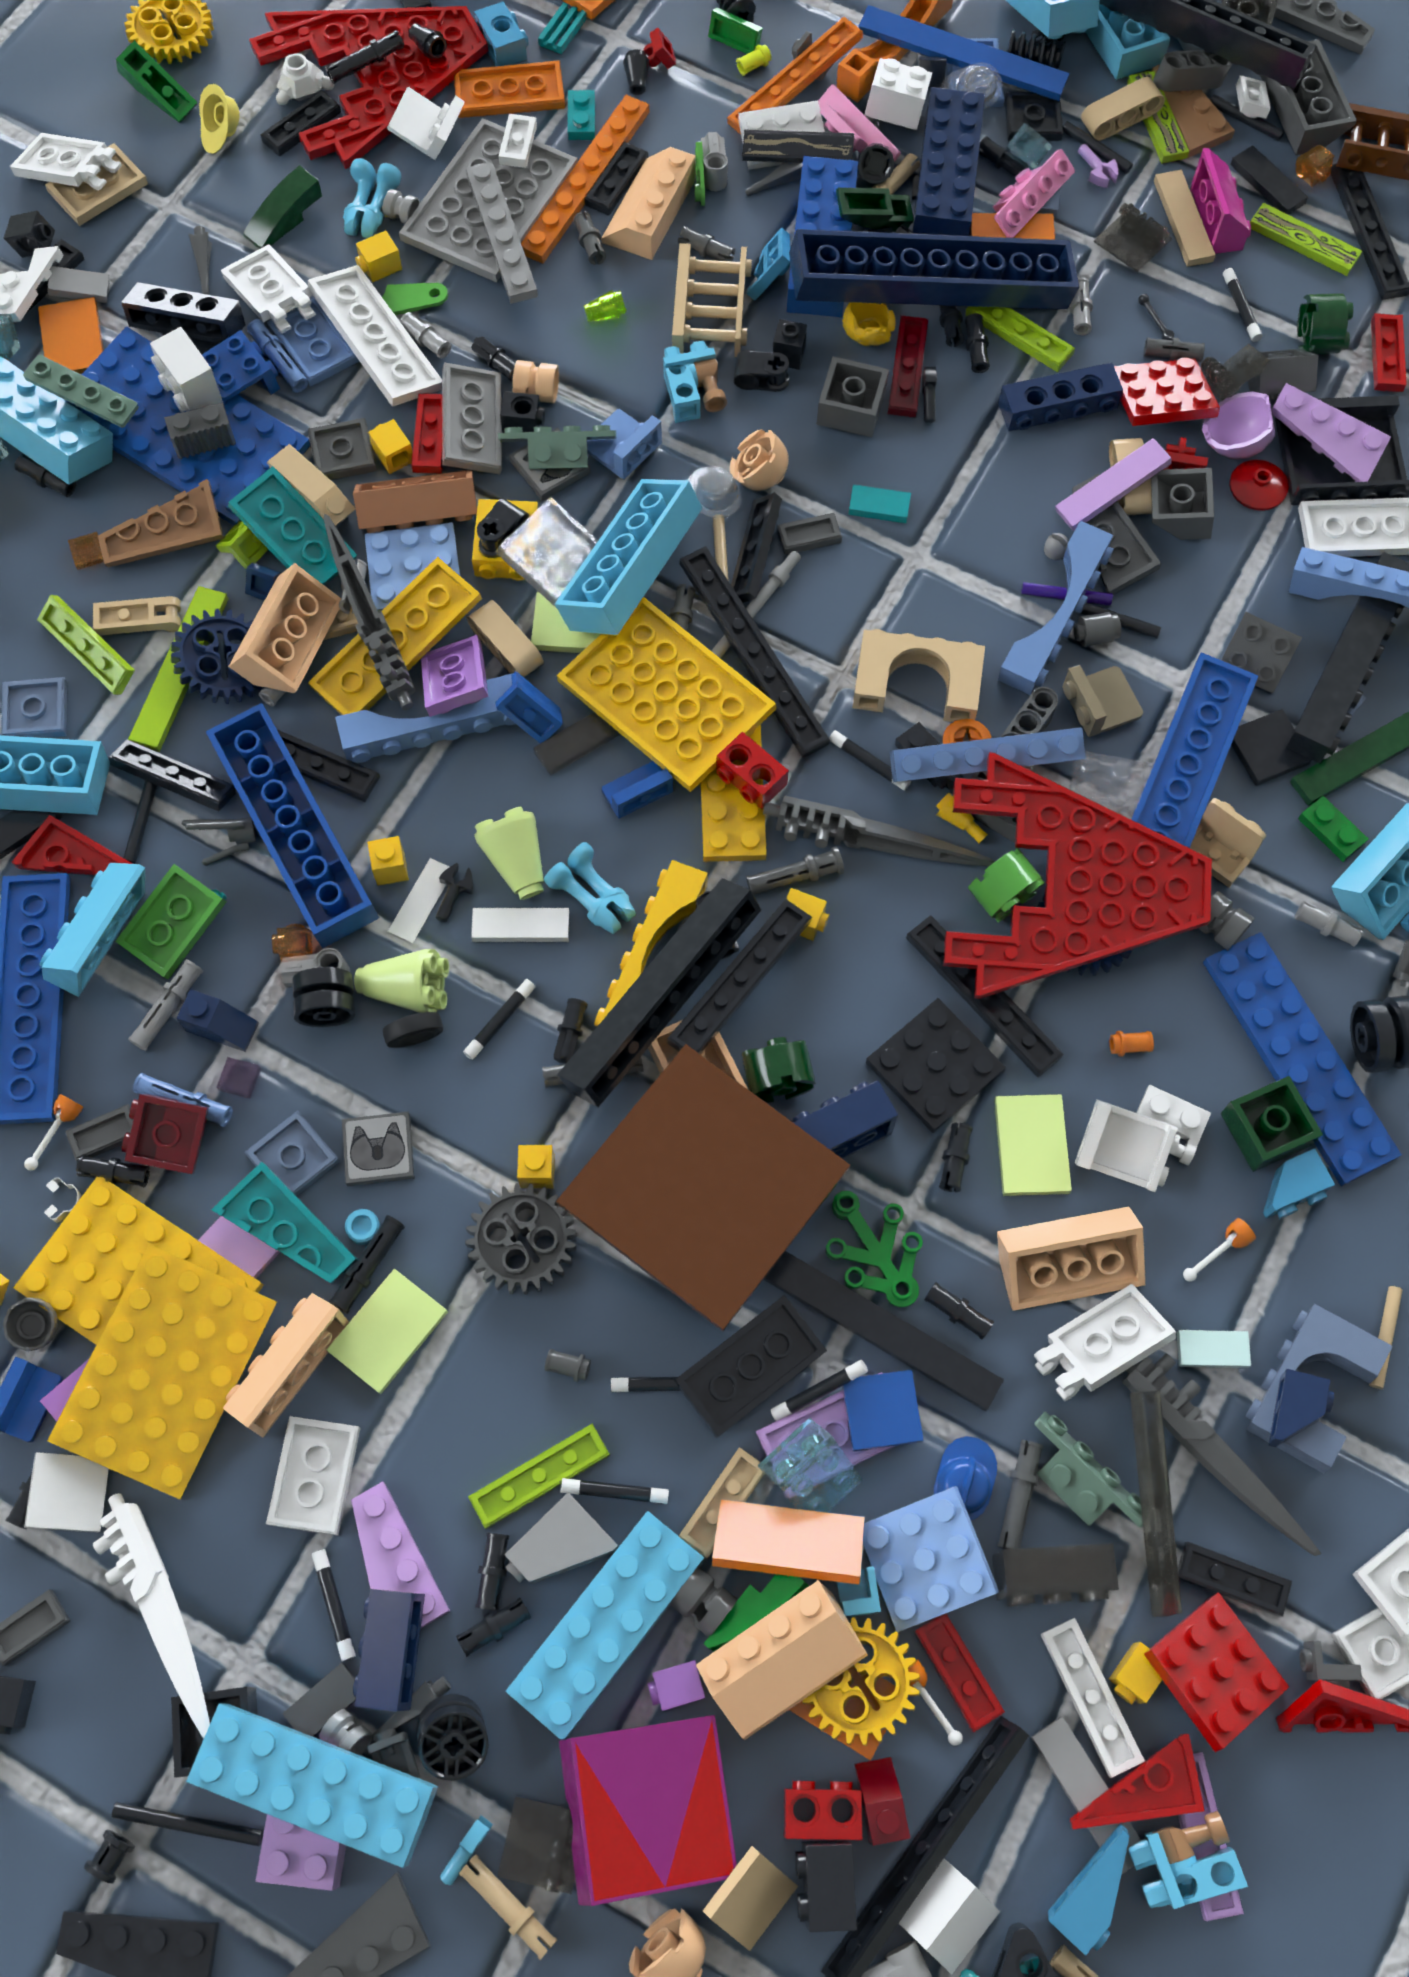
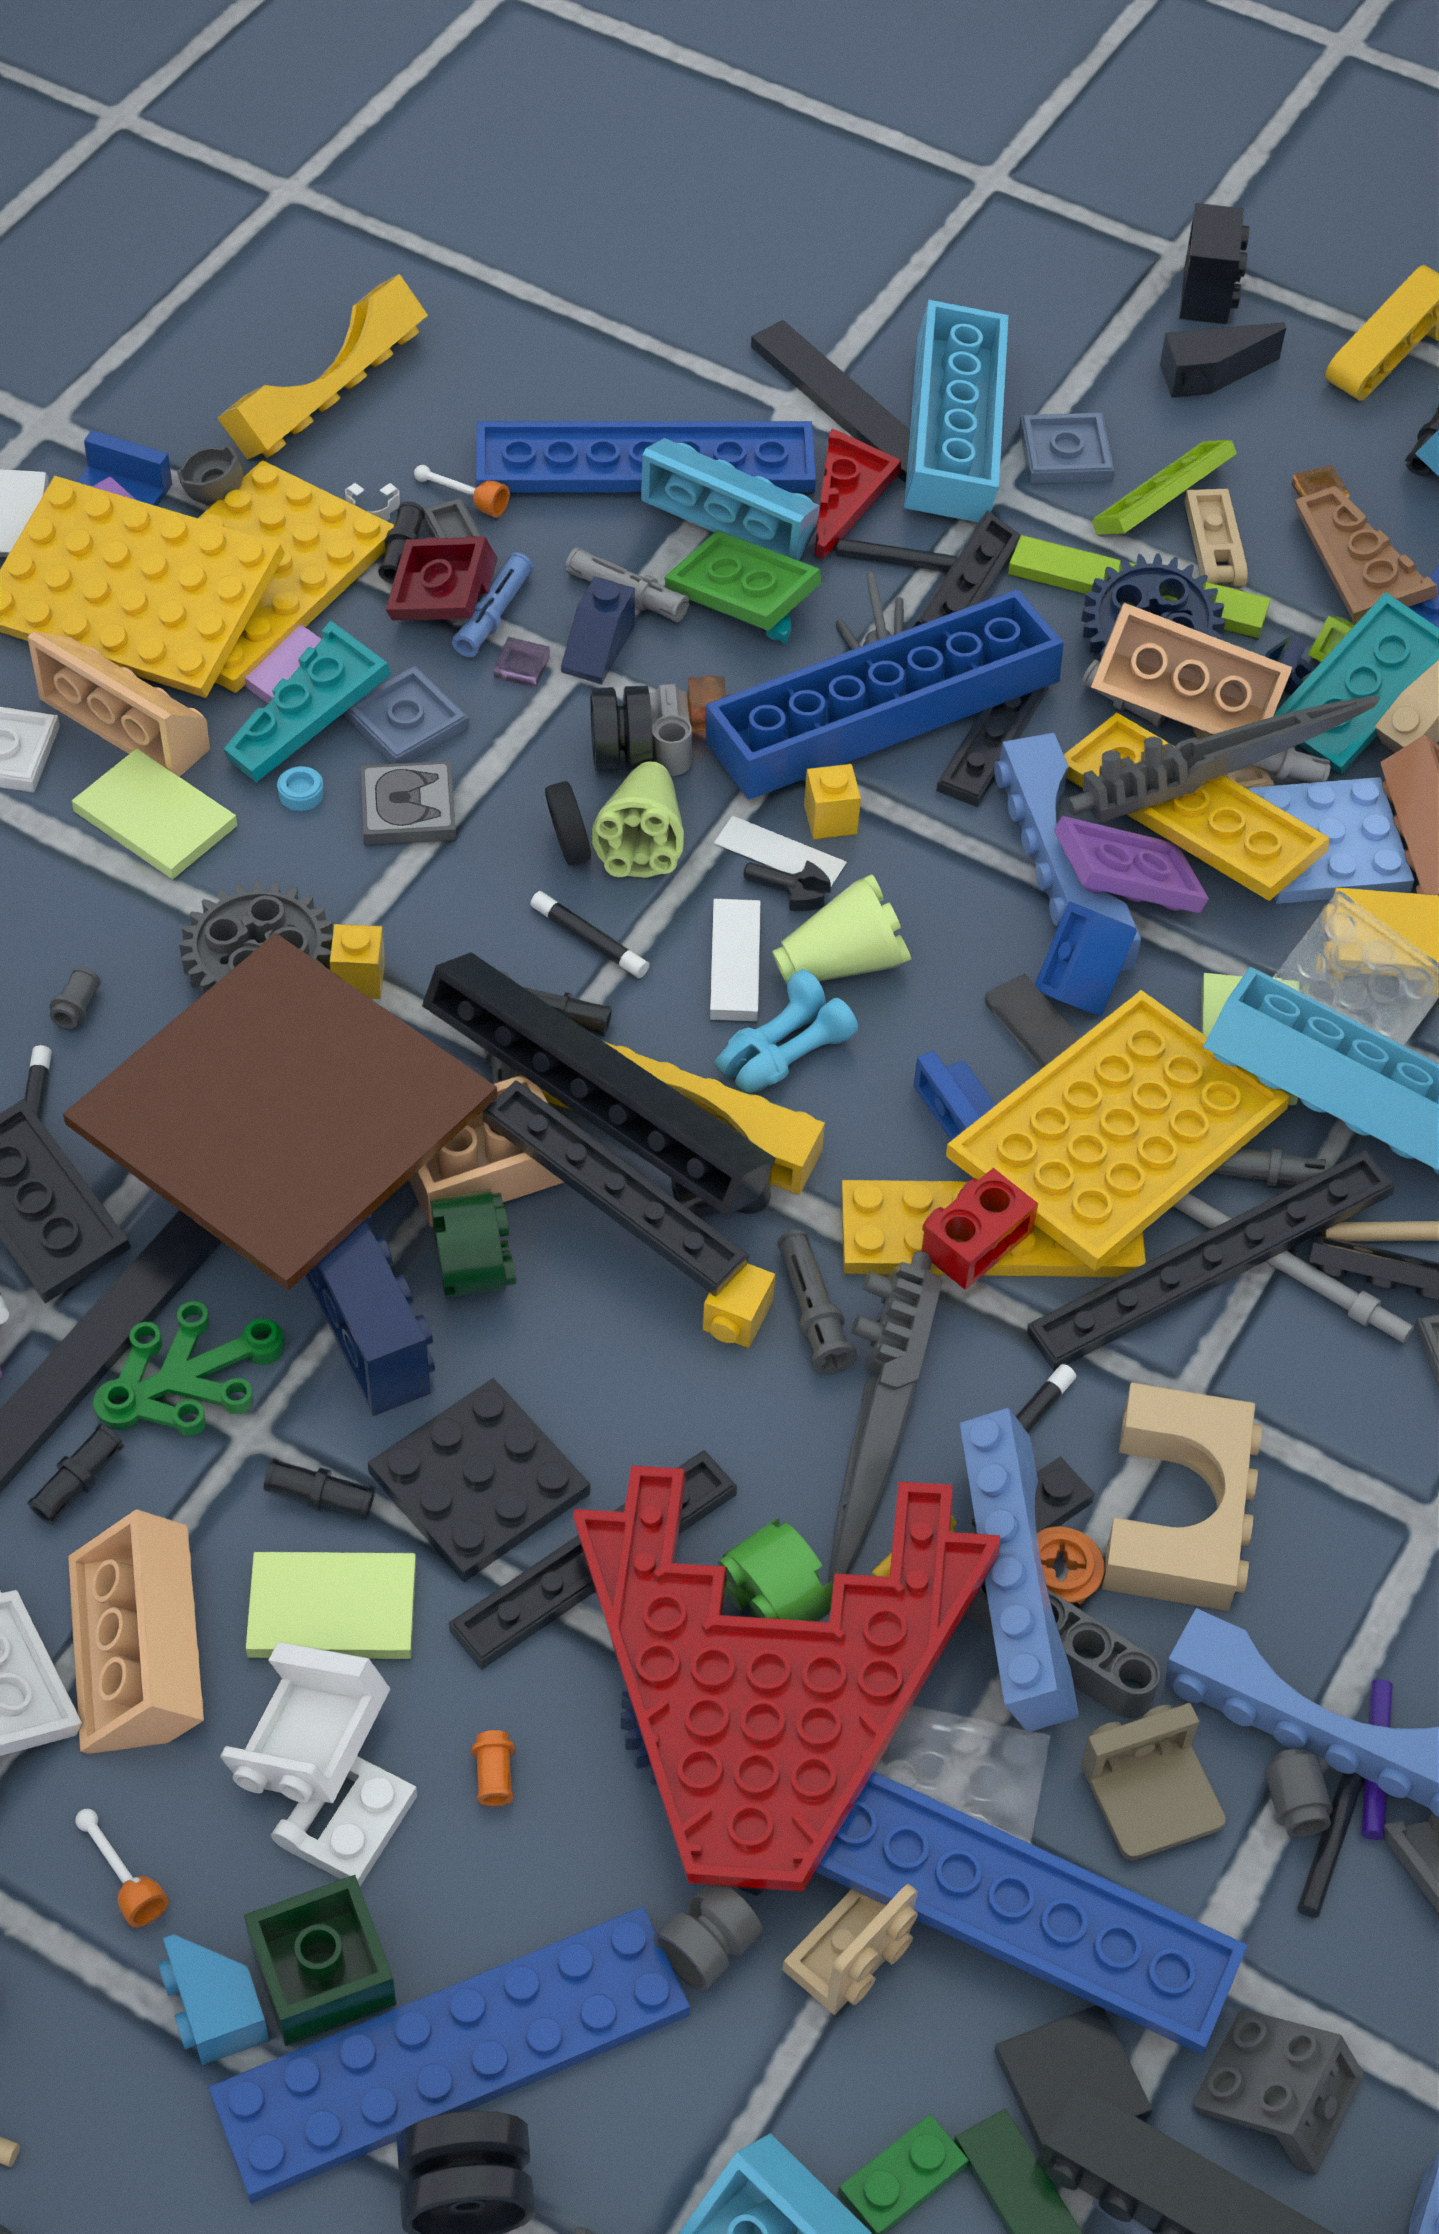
camera: 90 degrees right, 15 degrees down
(363, 1269) = (230, 779): black pin -> none
(498, 526) = (1393, 903): black piece -> none
(505, 639) = (1207, 940): tan beam -> none
(1329, 923) = (703, 2132): light grey pin -> none

